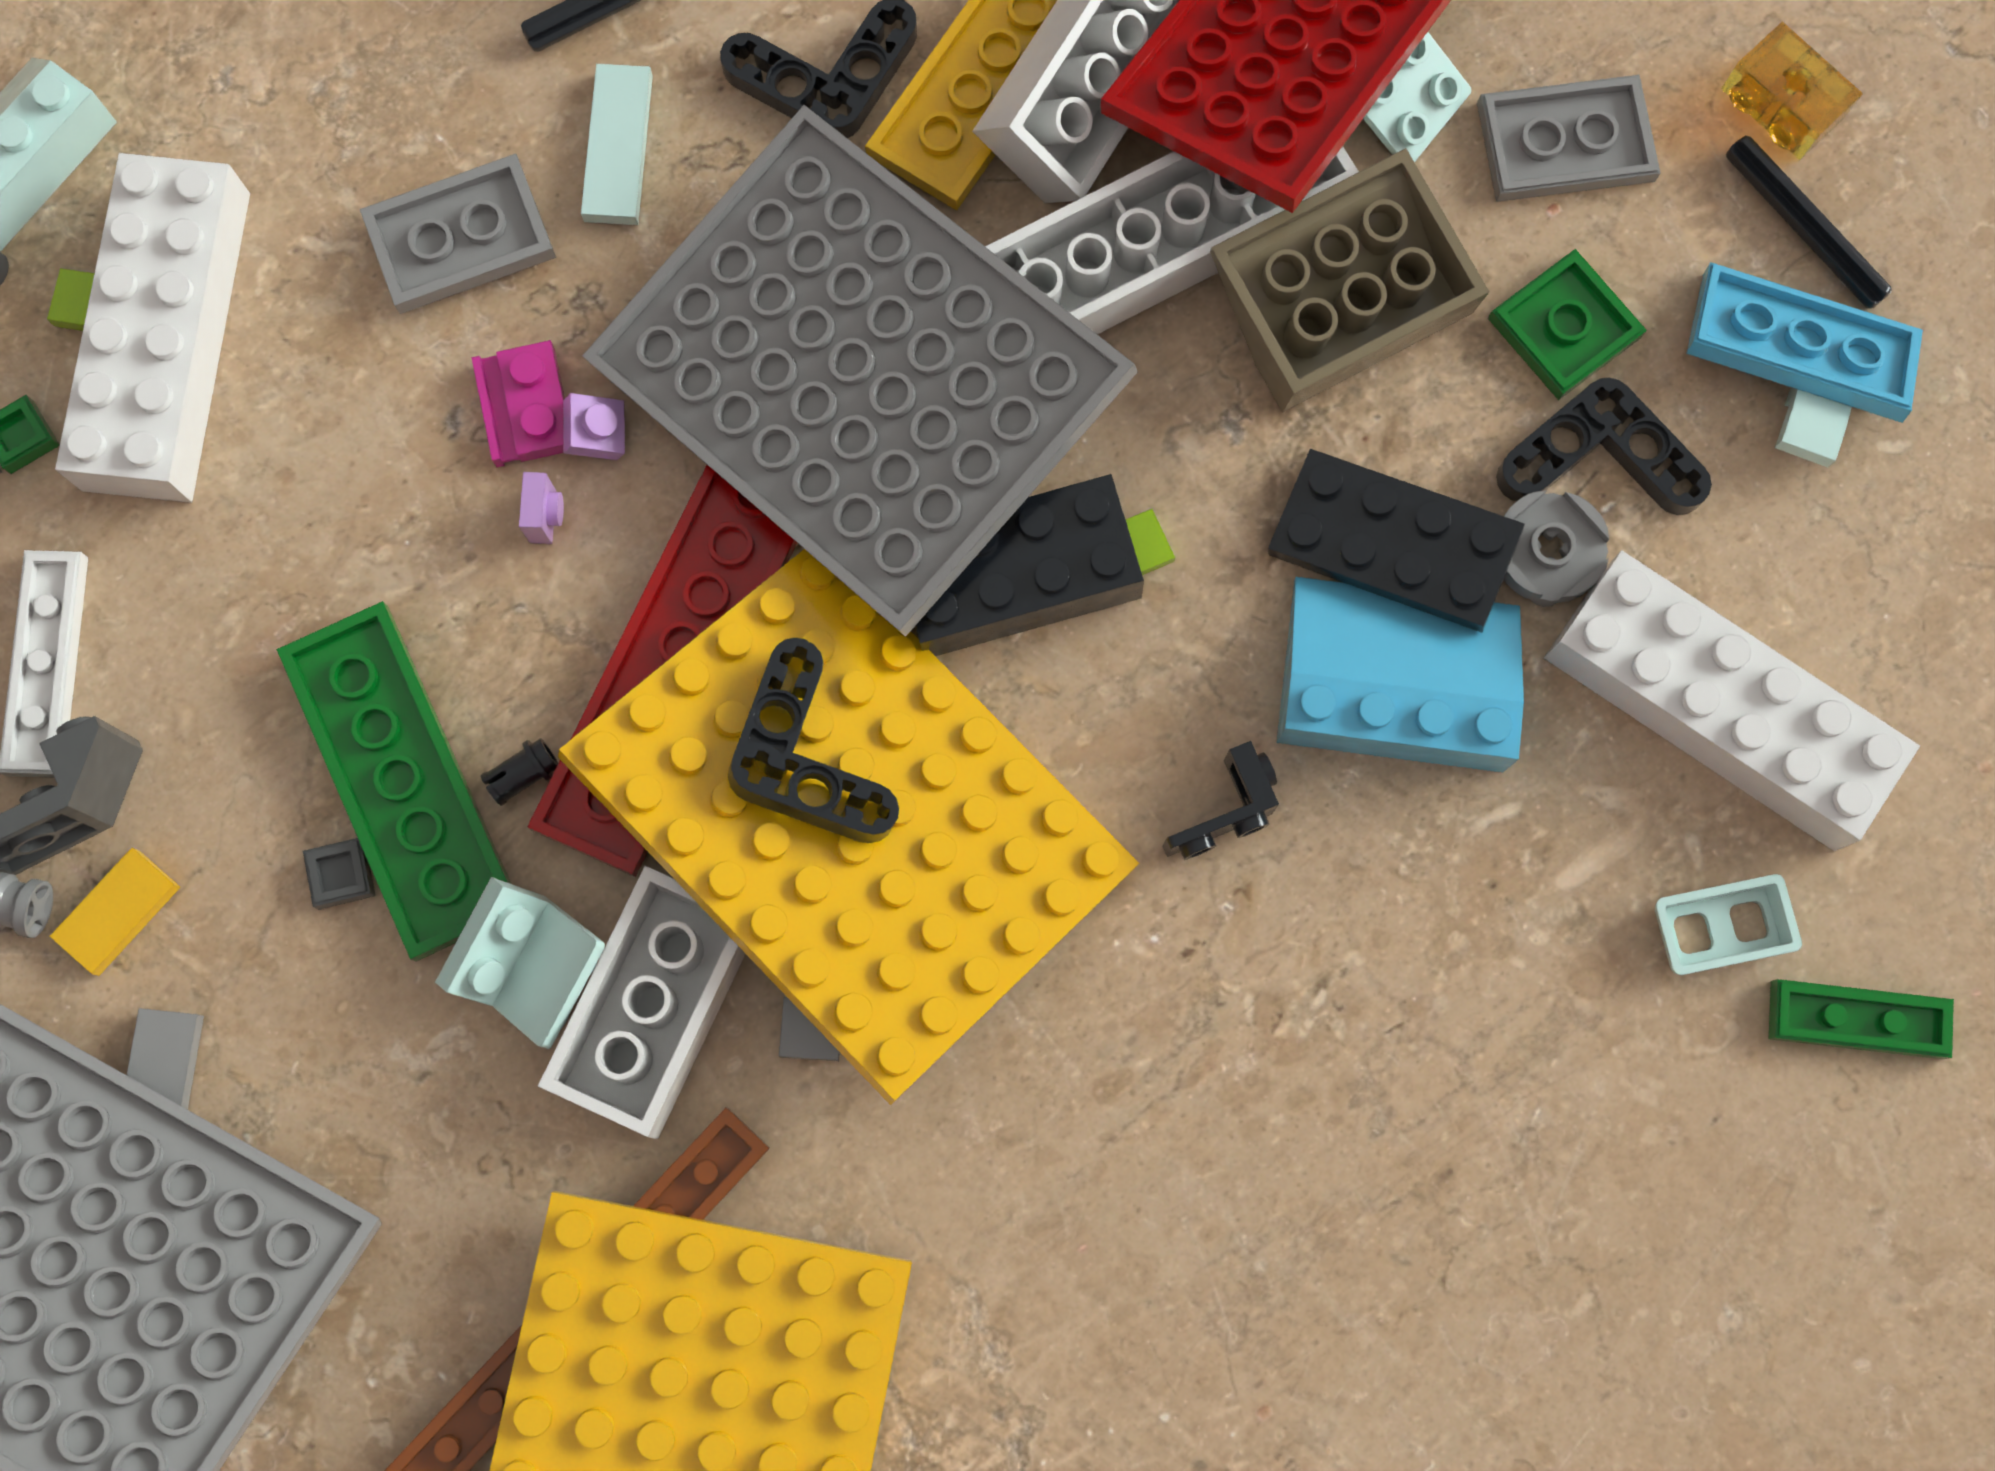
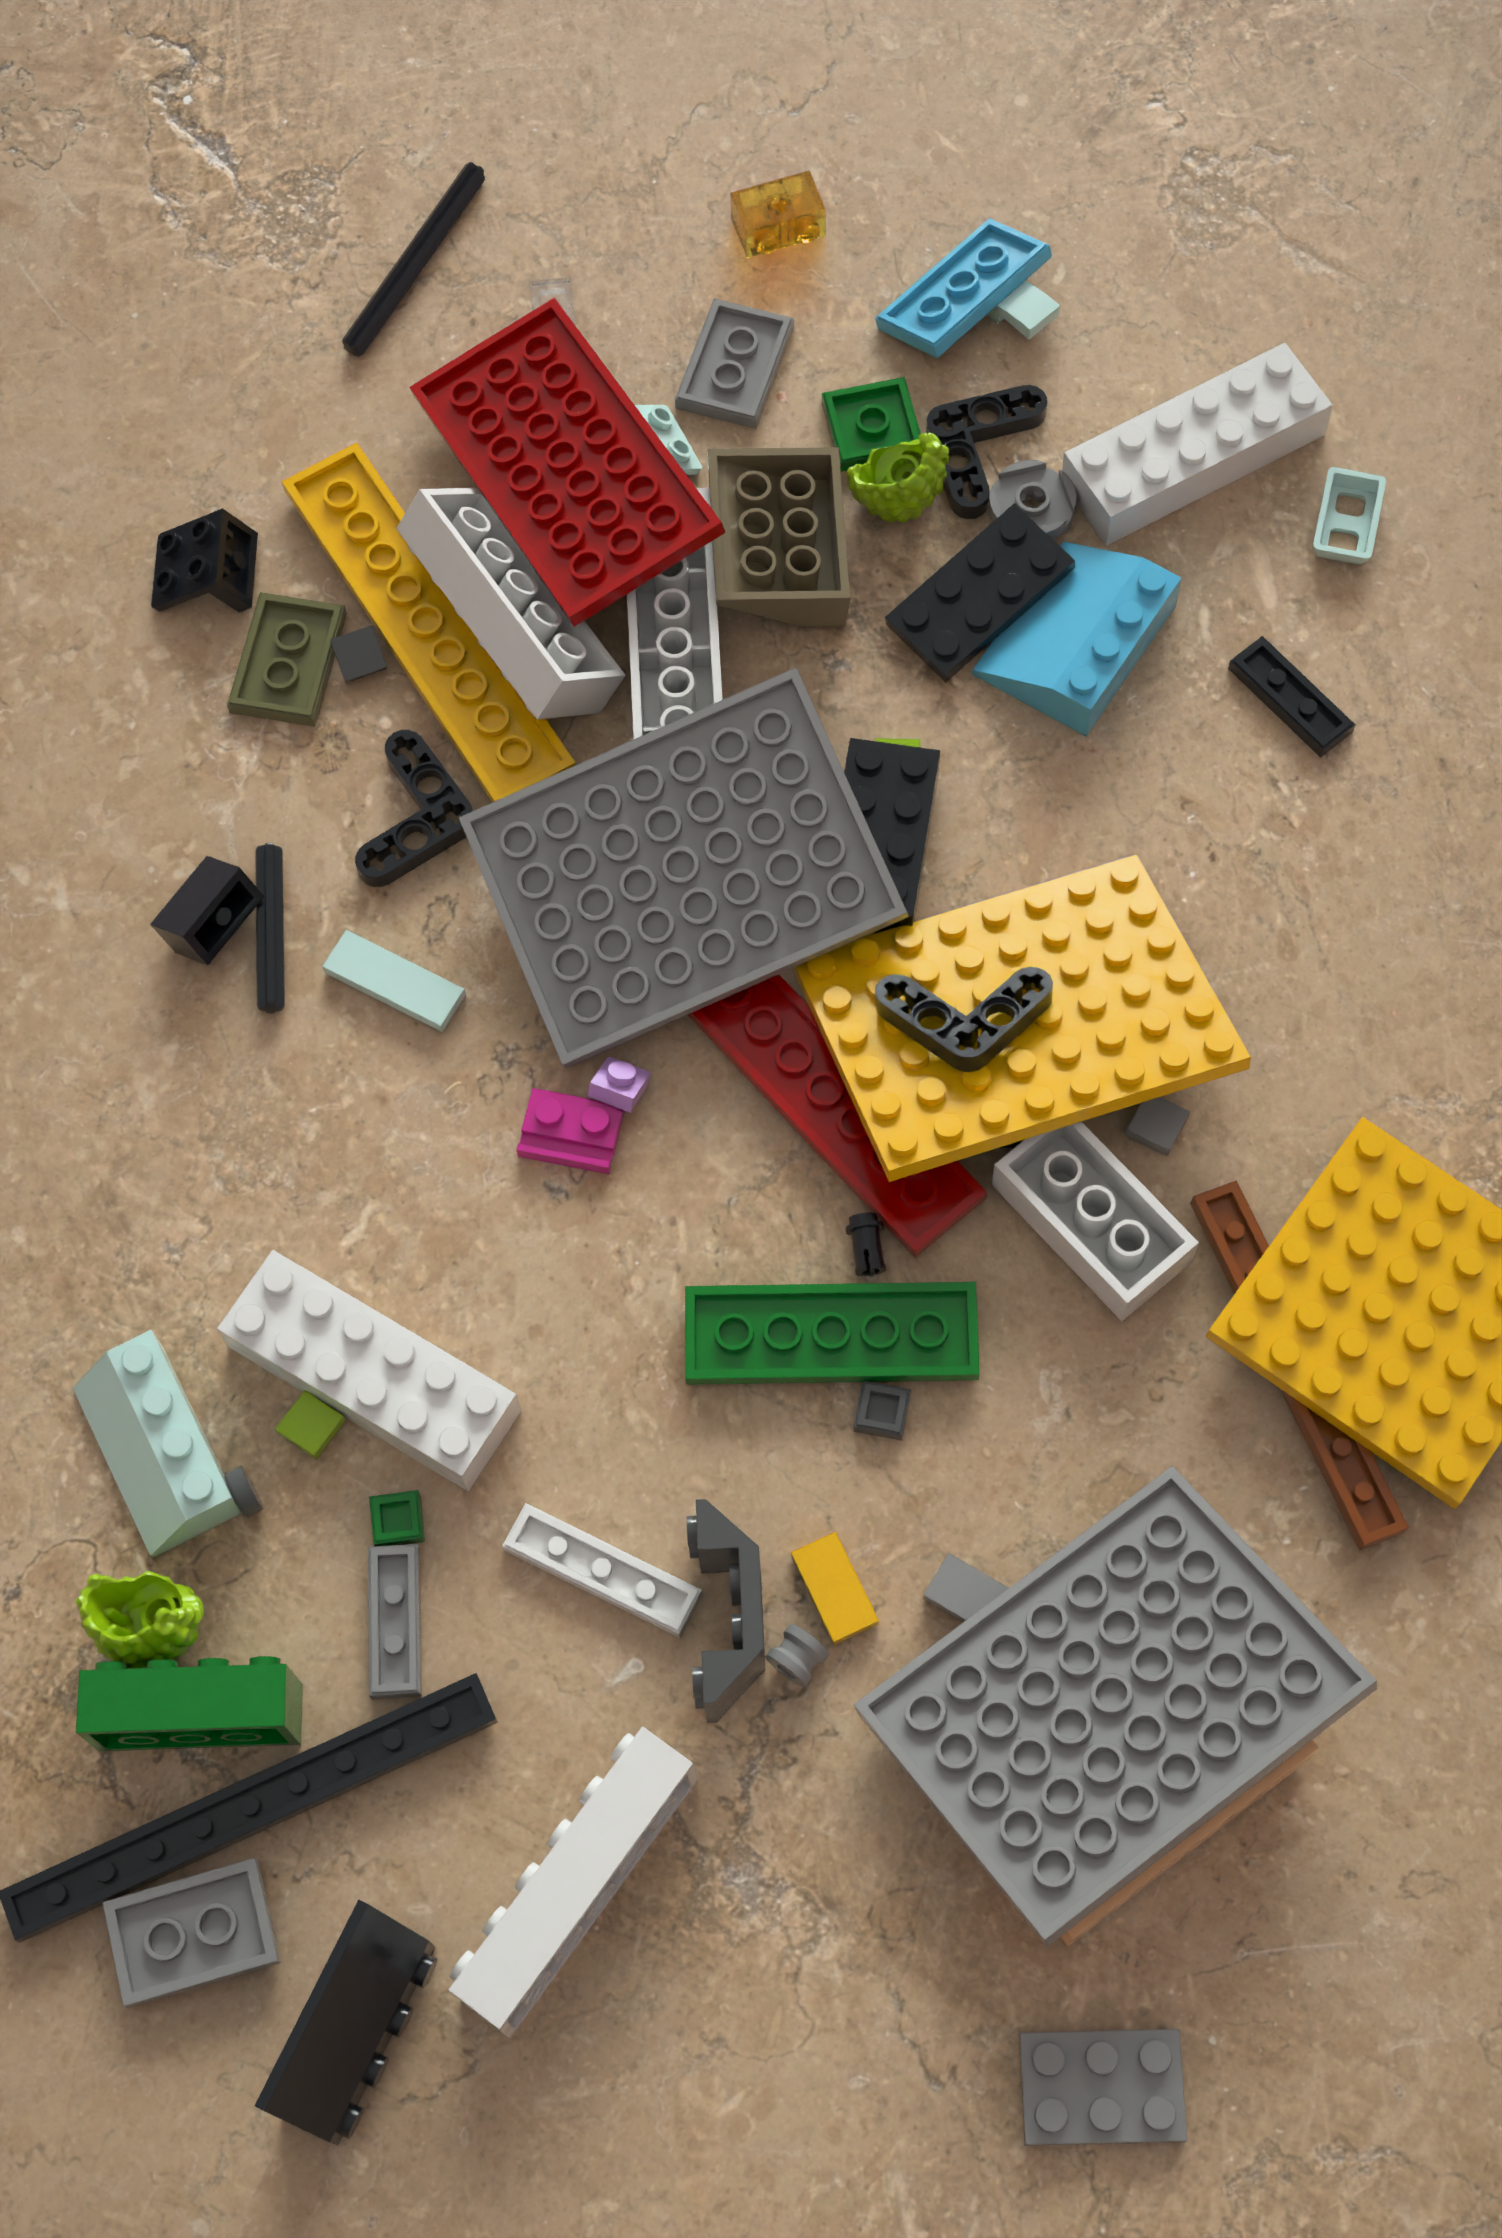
camera: 60 degrees left, 10 degrees down
(457, 233) = (408, 1120): light grey plate -> none
(522, 960) = (1027, 1283): light aqua bracket -> none
(539, 508) = (666, 1146): lavender plate -> none
(1253, 781) = (1122, 758): black bracket -> none
(1444, 957) = (1291, 696): none -> black tile
(1494, 381) = (900, 478): none -> lime hair
(1808, 222) = (876, 248): black axle -> none
(1861, 1019) = (1446, 470): green tile -> none

